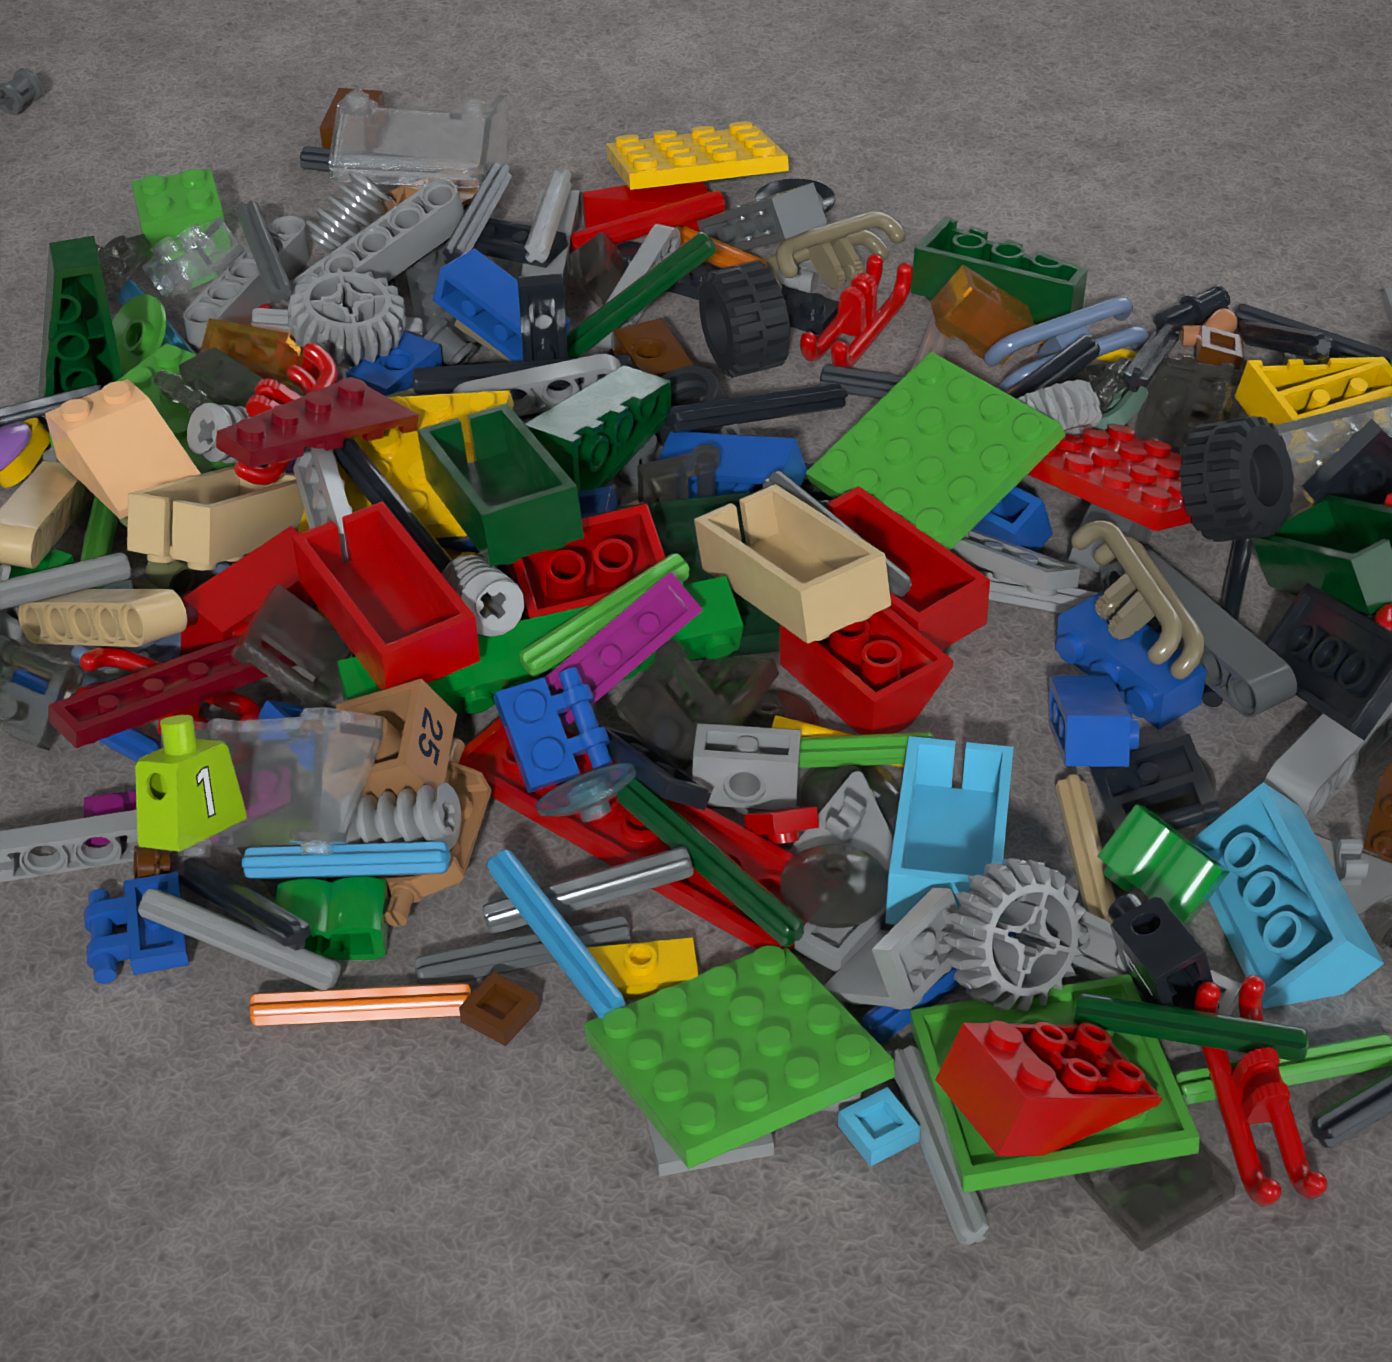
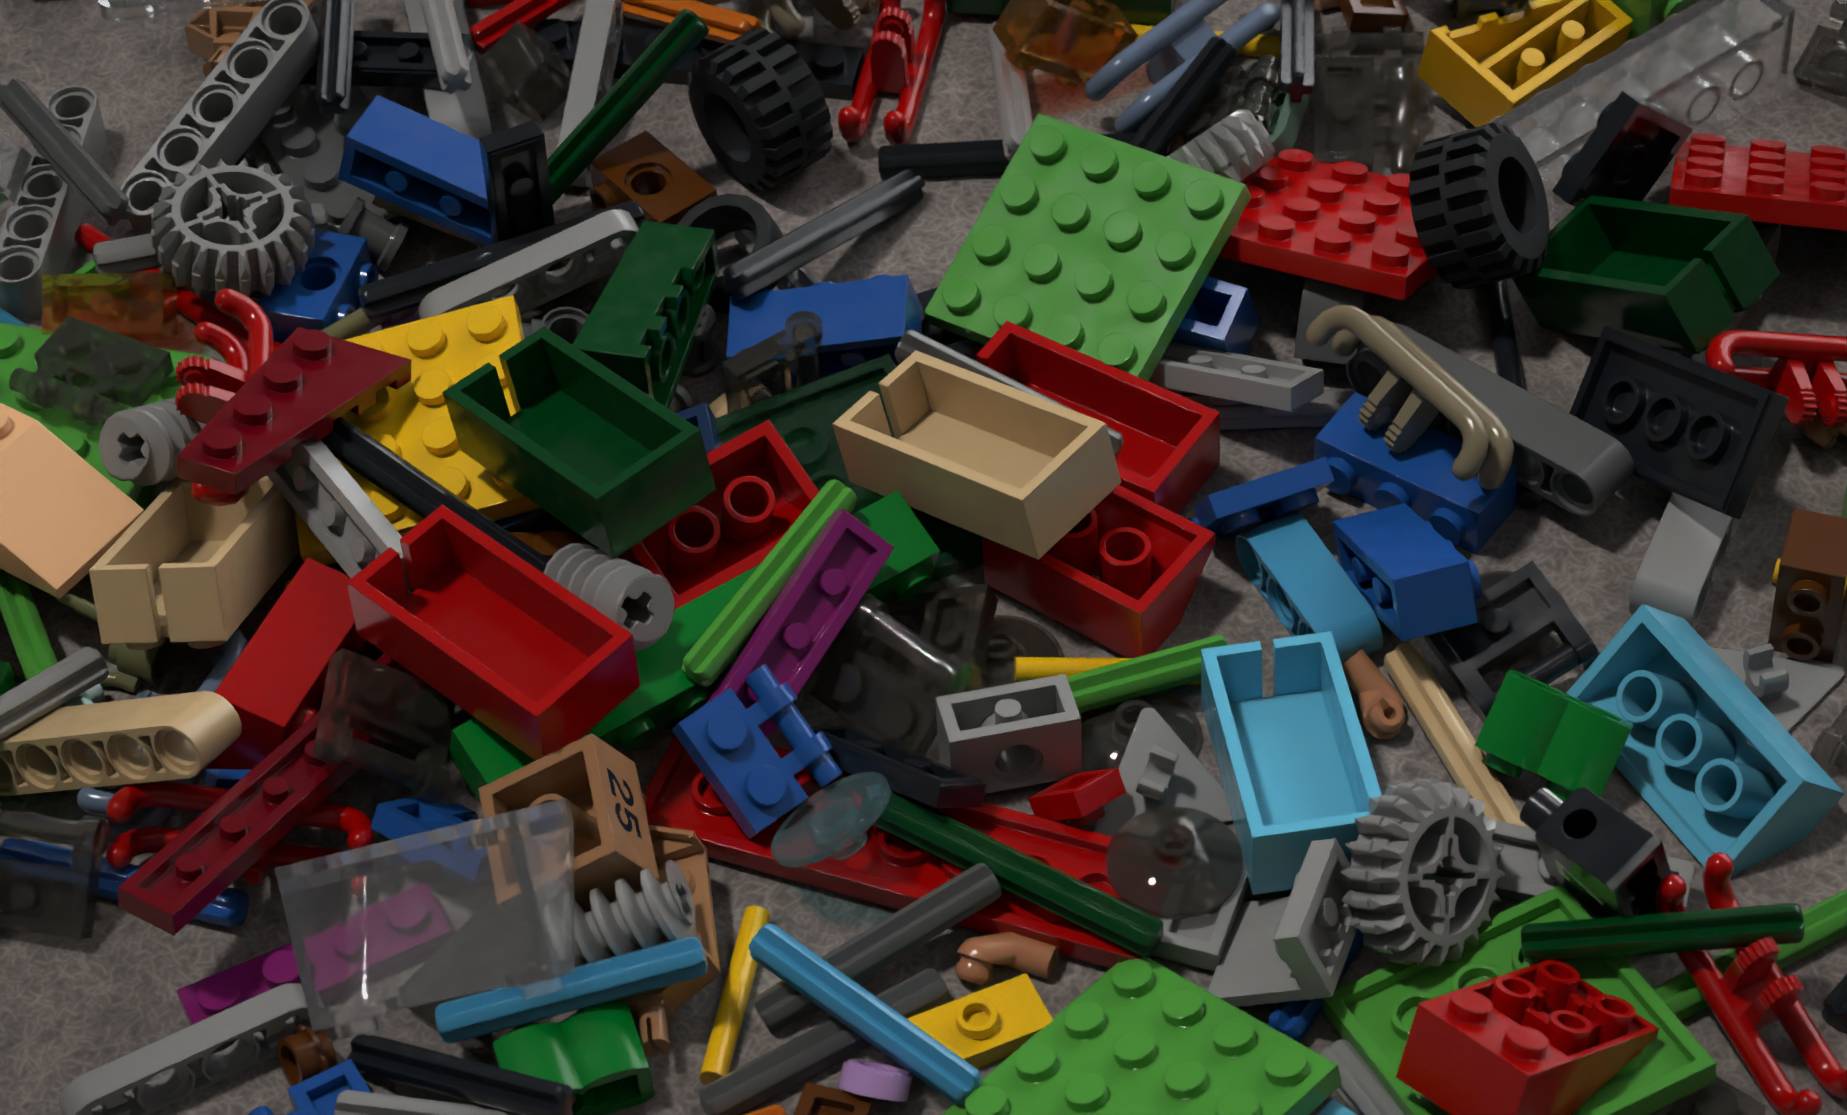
camera: 15 degrees left, 5 degrees up
(185, 789) = (341, 954): lime torso -> none
(347, 212) = (149, 68): light grey piece -> none
(468, 908) = (733, 998): none -> yellow bar
(546, 984) = (875, 1080): none -> lavender tile
(686, 918) = (1008, 950): none -> nougat arm
(1002, 648) = (1263, 498): none -> blue plate
(1017, 720) = (1307, 585): none -> dark azure beam
(1041, 811) = (1378, 701): none -> nougat arm

